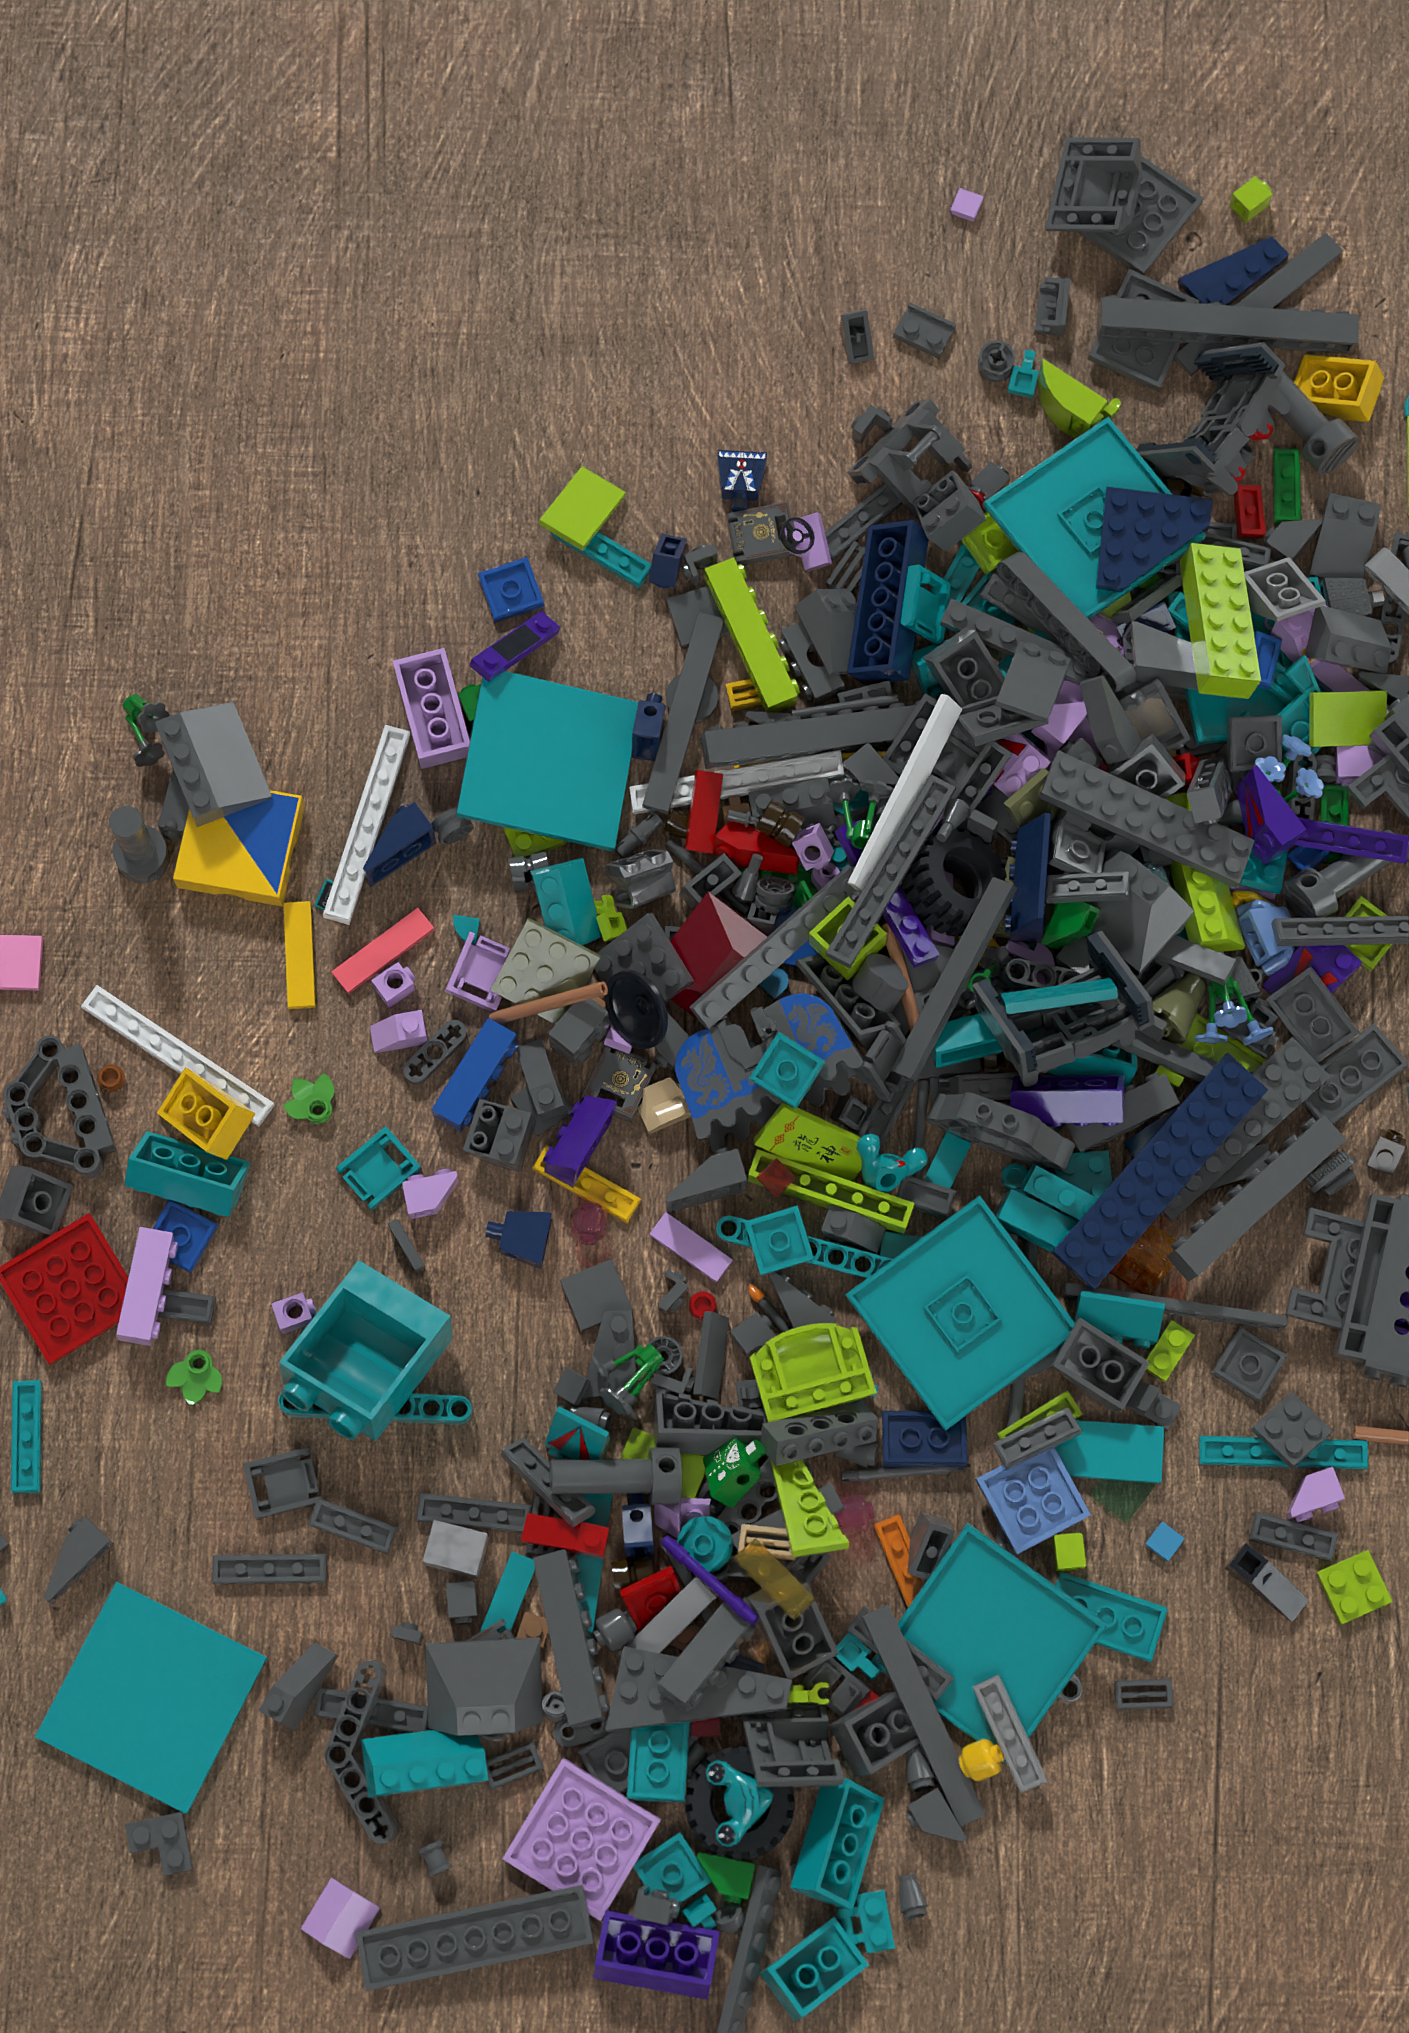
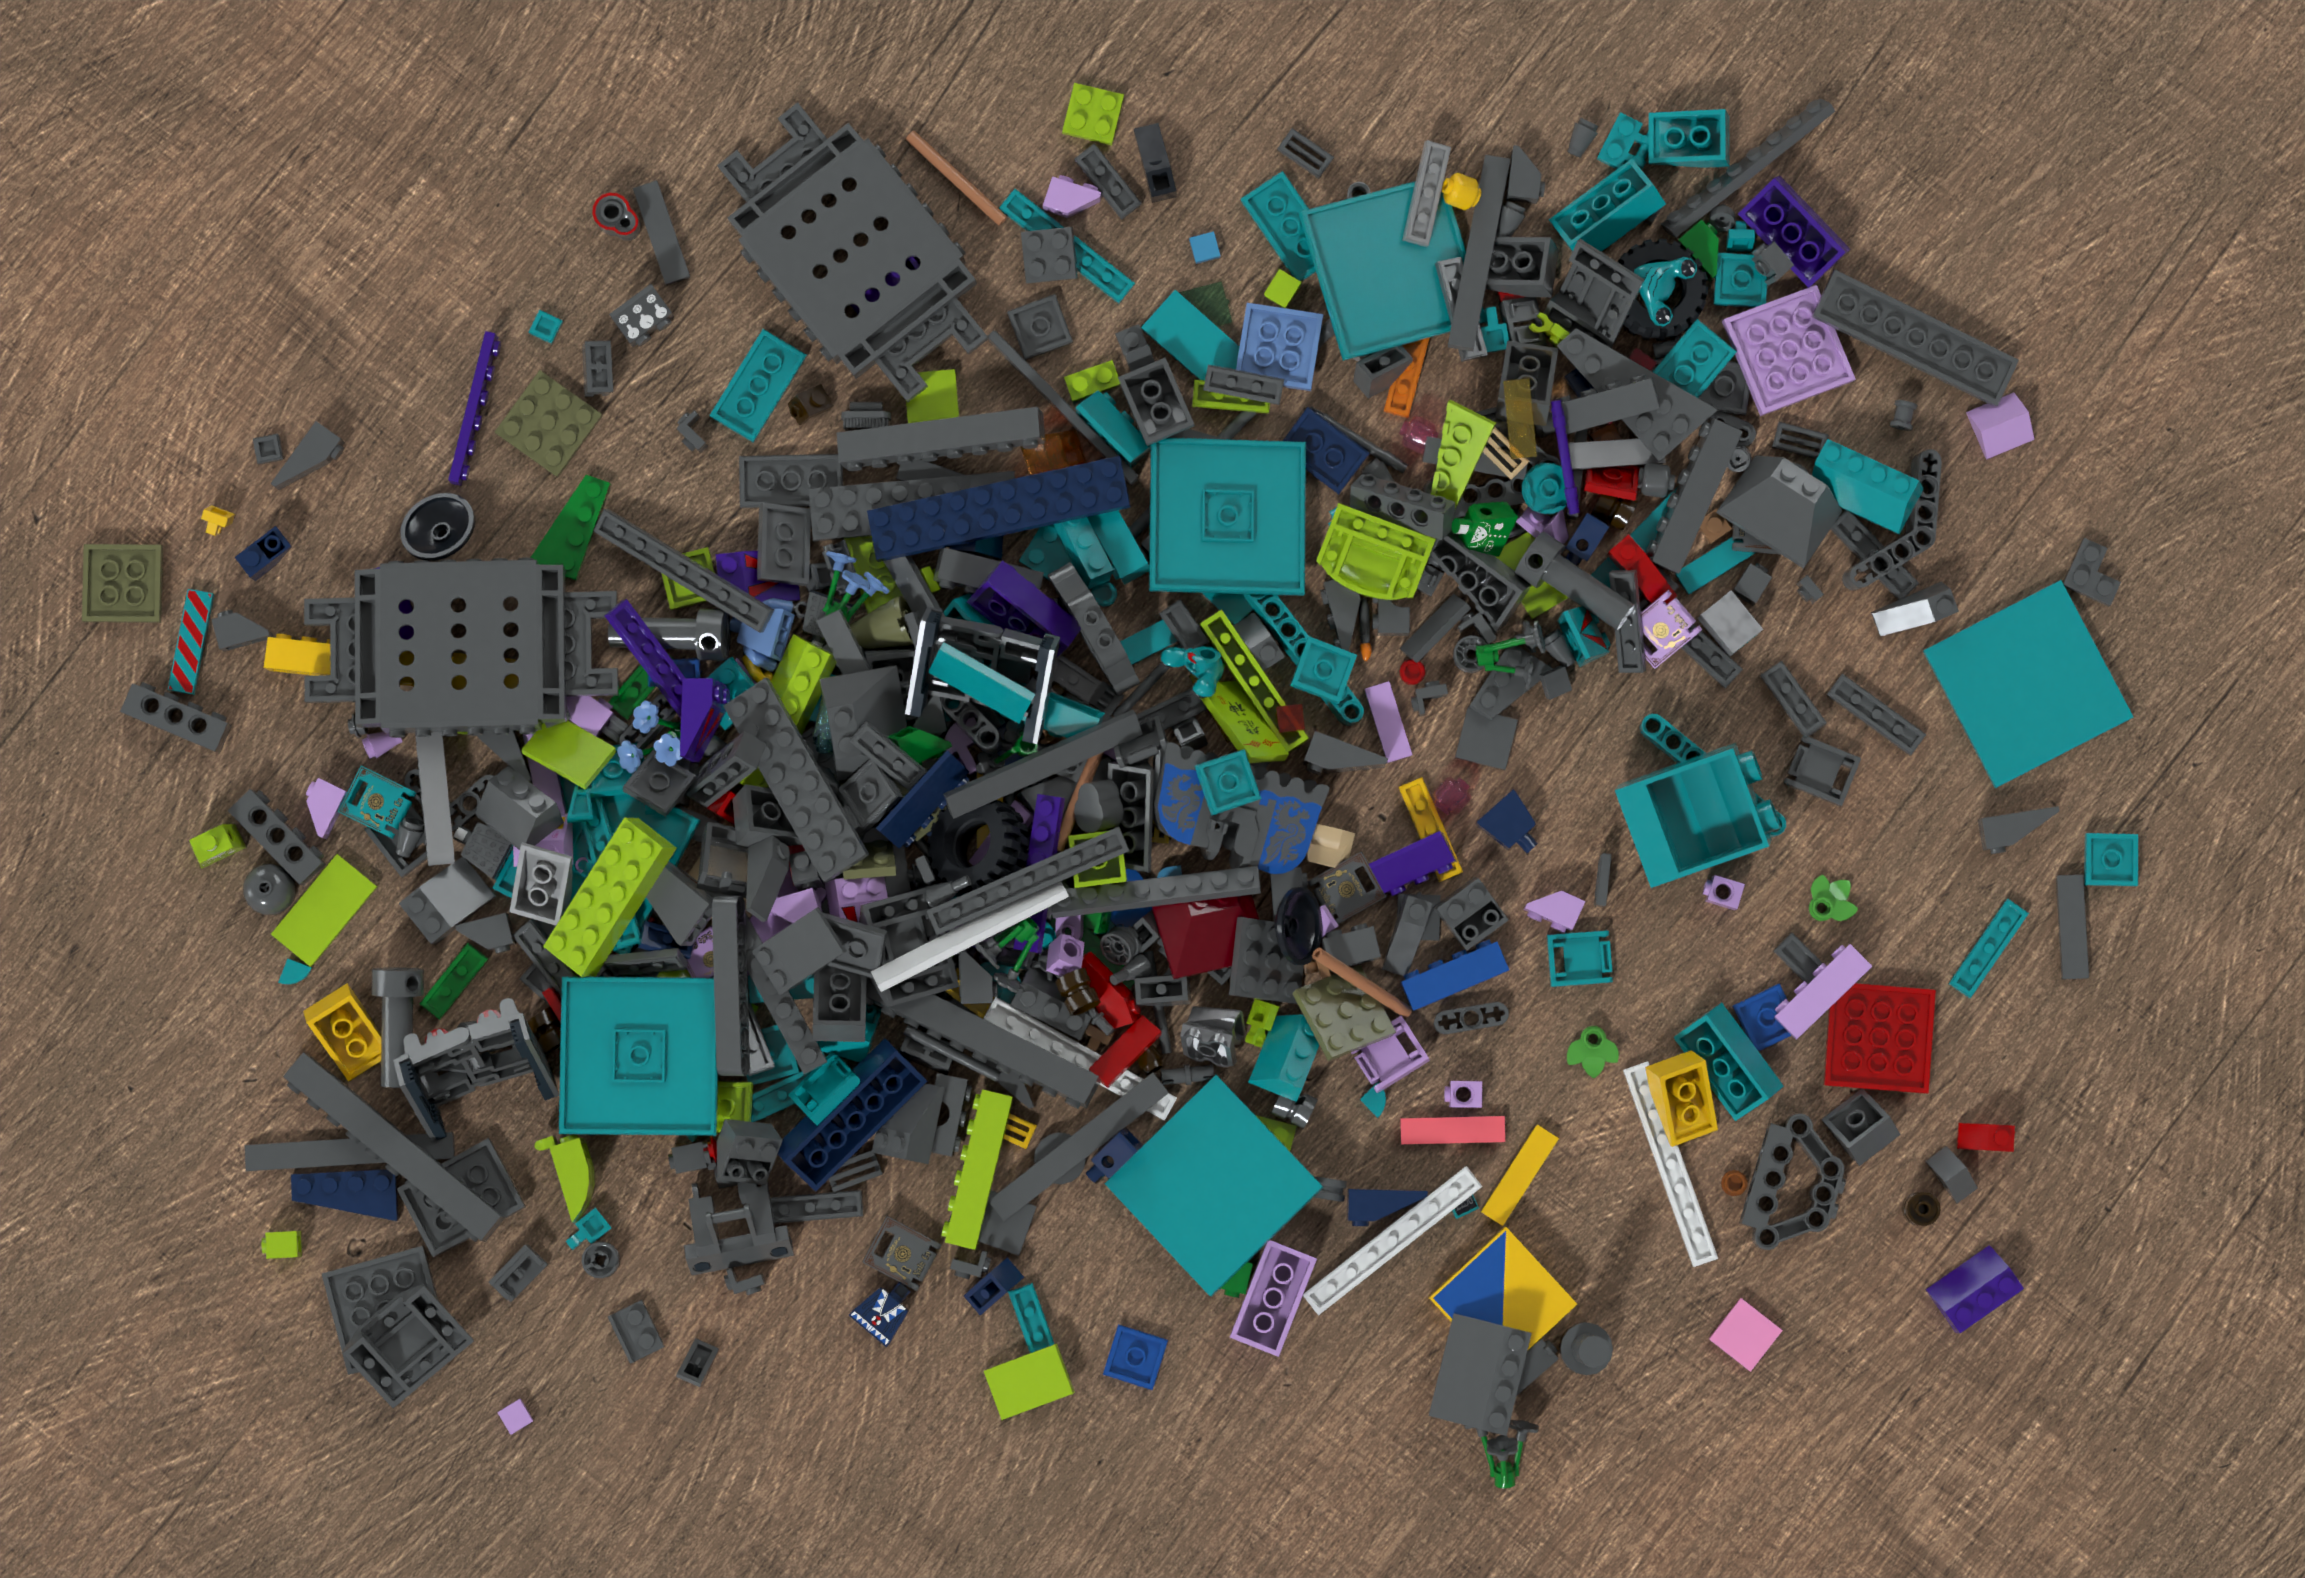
camera: 140 degrees left, 10 degrees up
(399, 1032) = (1488, 1053): lavender slope -> none
(509, 1501) = (1666, 628): none -> lavender container
(514, 646) = (1171, 1299): dark purple plate -> none
(807, 540) = (873, 1217): lavender piece -> none
(1143, 531) = (610, 1014): dark blue plate -> none
(1249, 511) = (502, 980): red plate -> none
(1267, 653) = (591, 847): blue tile -> none
(1283, 1235) = (937, 400): none -> lime tile

